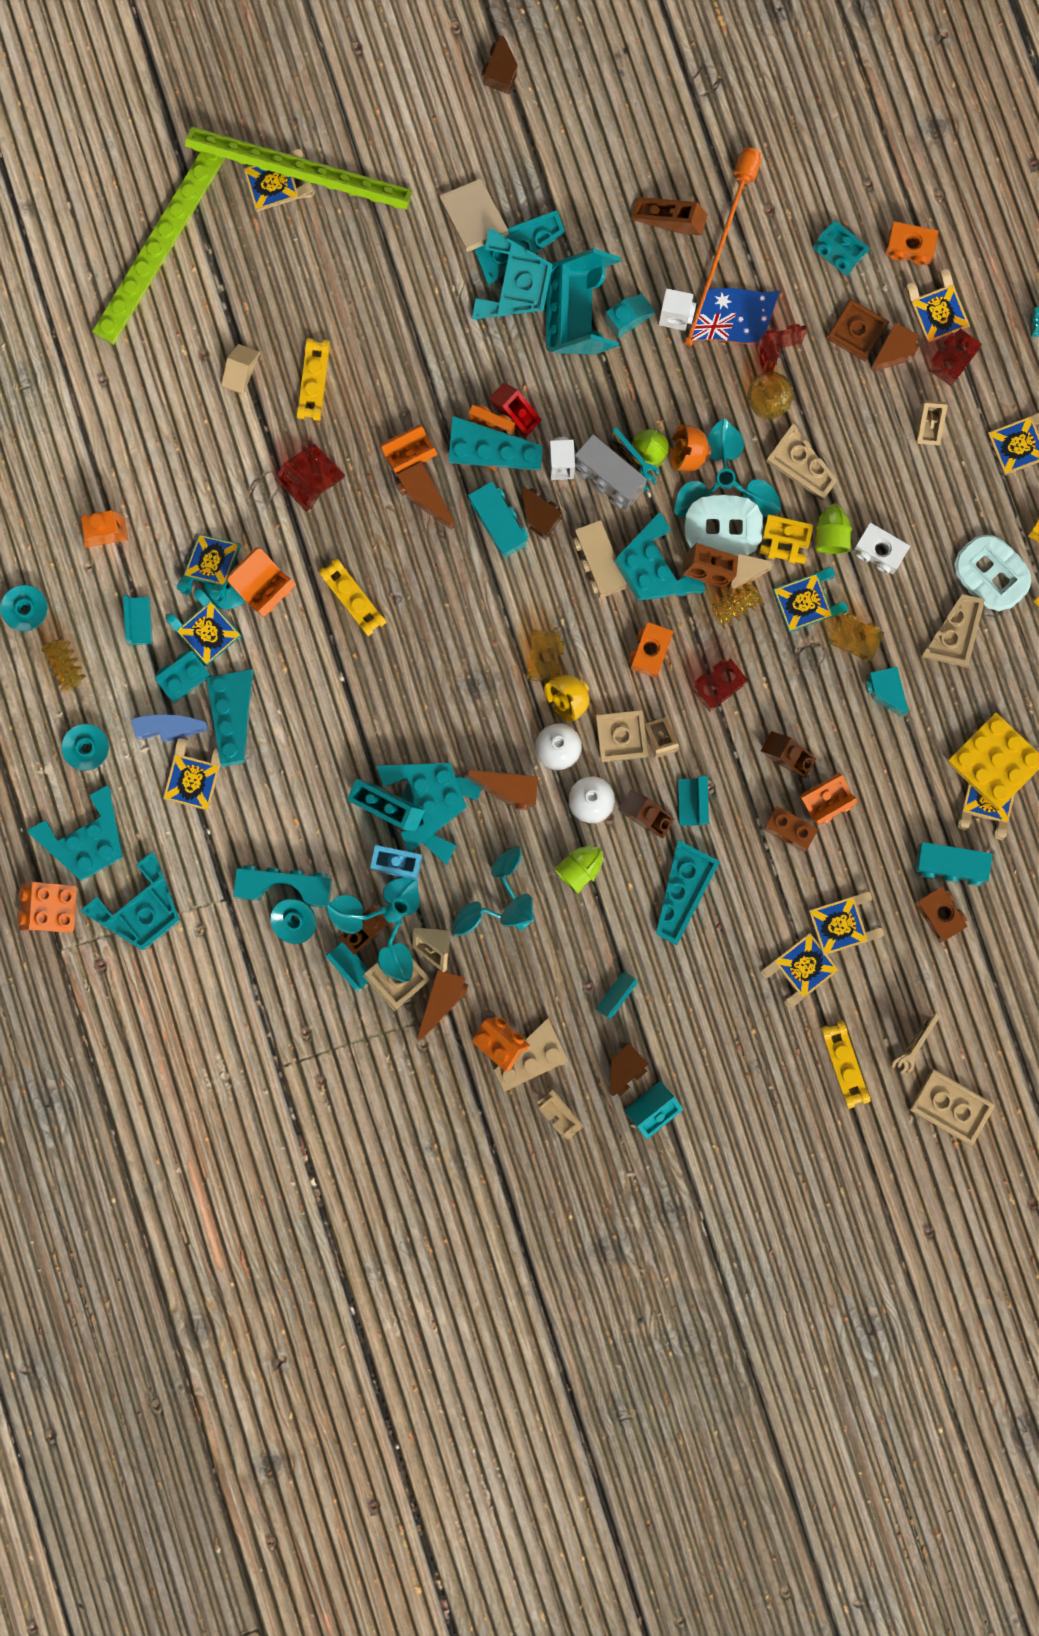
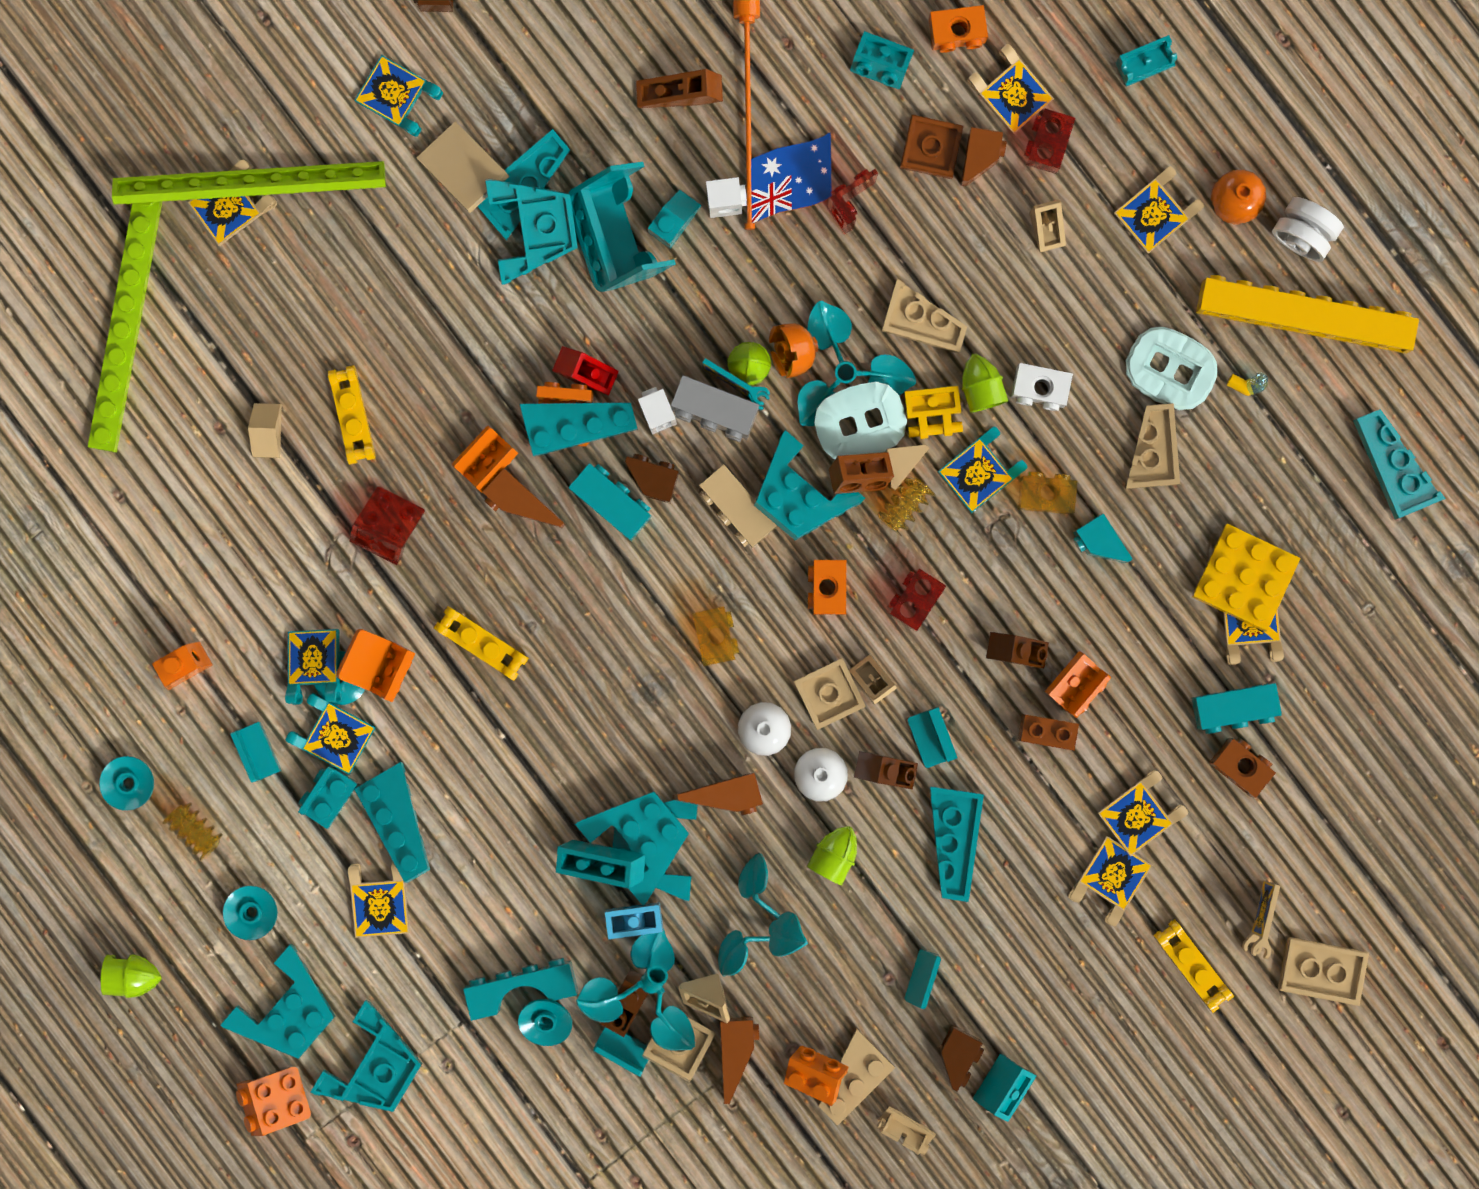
camera: 15 degrees left, 5 degrees up
(167, 726) = (331, 859): medium blue slope -> none
(439, 139) = (393, 92): none -> flag
(568, 695) = (757, 671): yellow cylinder -> none
(770, 395) = (860, 255): clear yellow cylinder -> none

